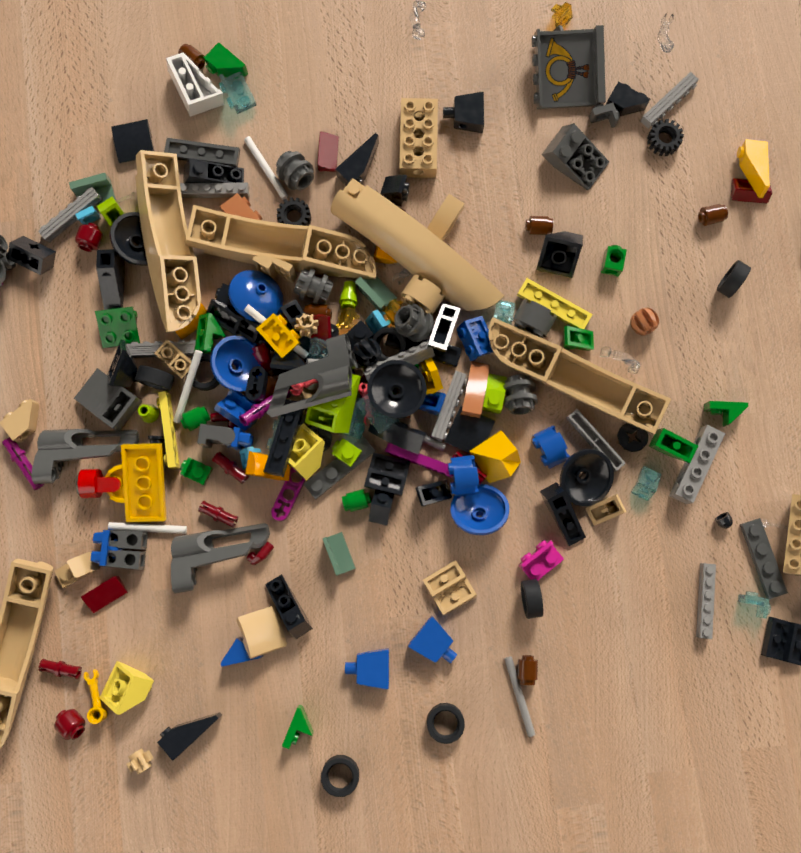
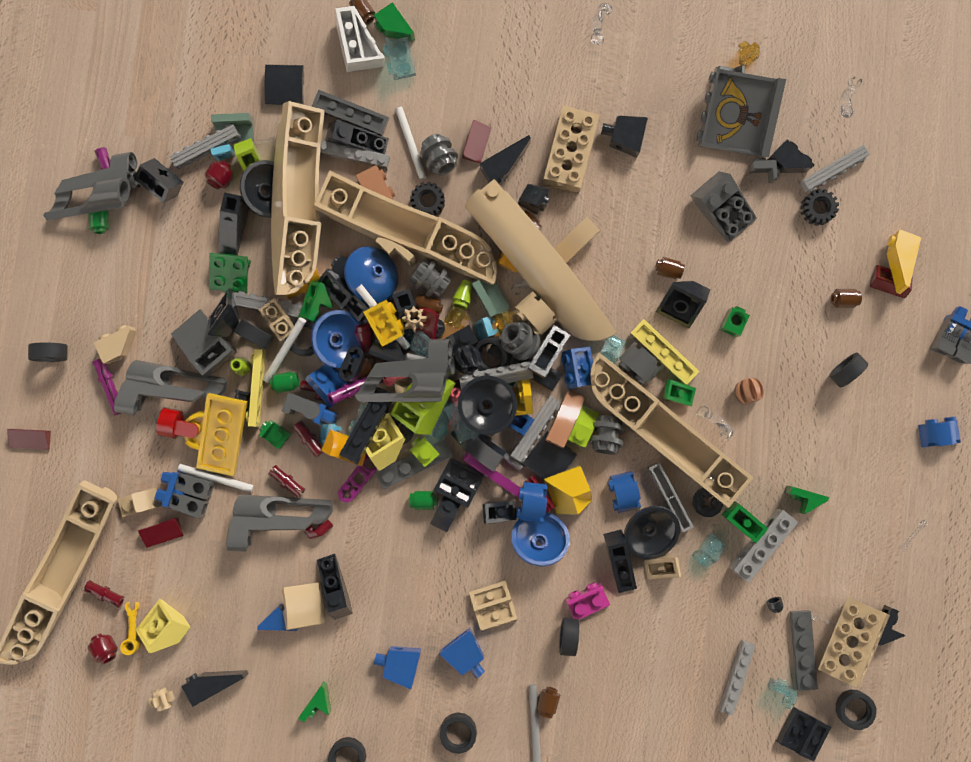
camera: 10 degrees right, 5 degrees up
(339, 553) = (394, 547): sand green panel -> none

